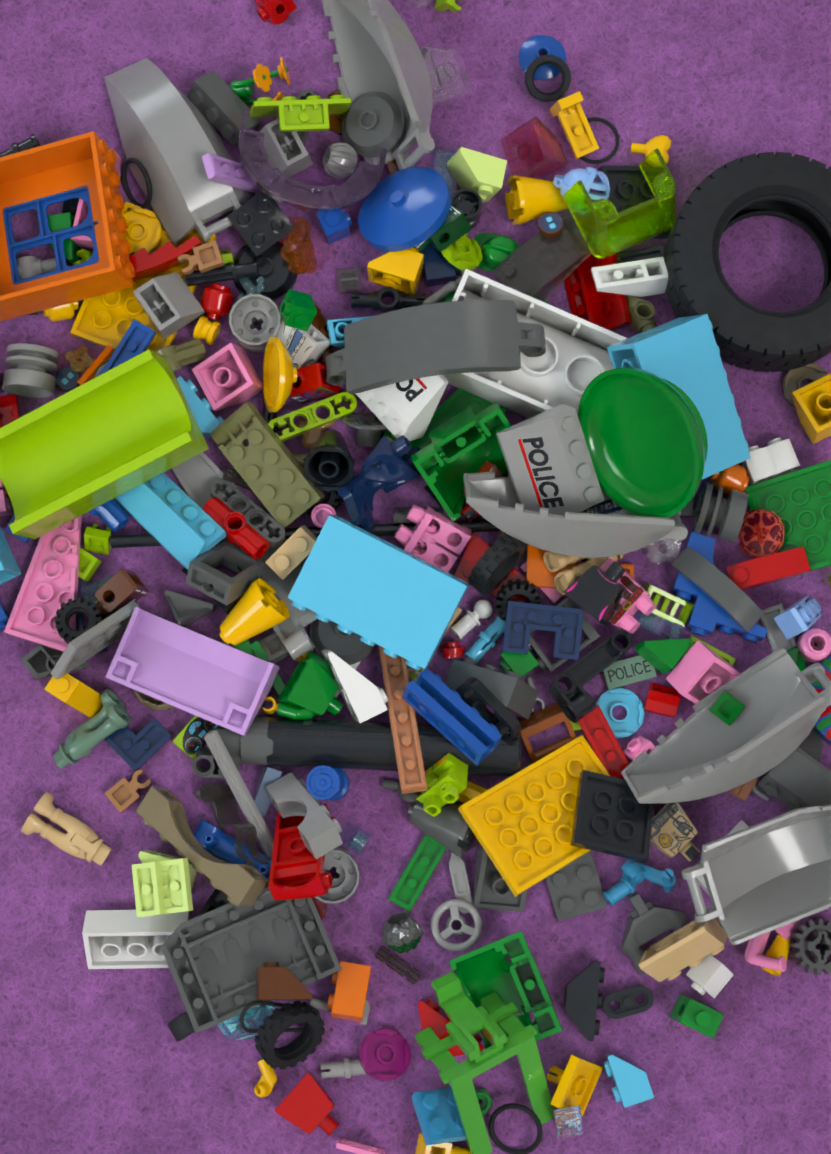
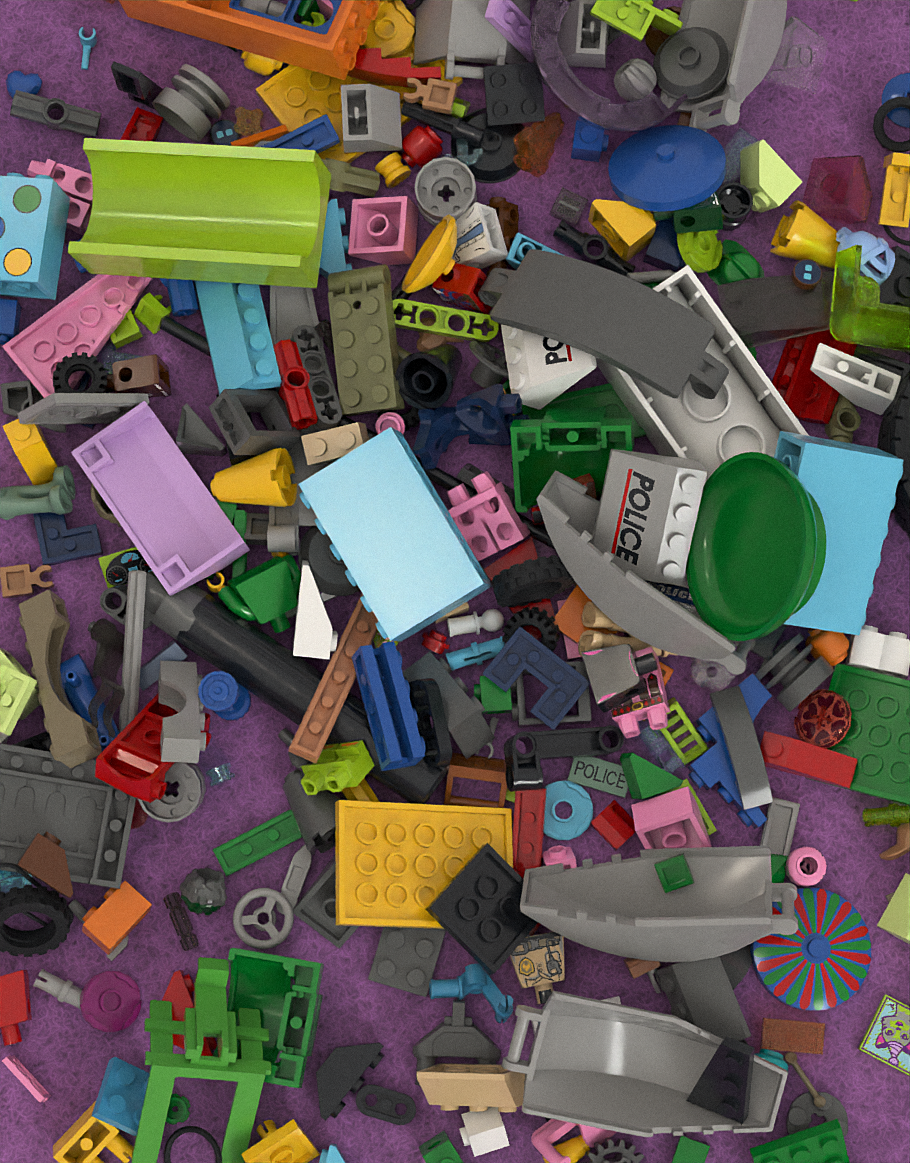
camera: 25 degrees right, 0 degrees up
(298, 310) = (494, 203): green brick -> none
(798, 617) = (807, 827): light blue slope -> none

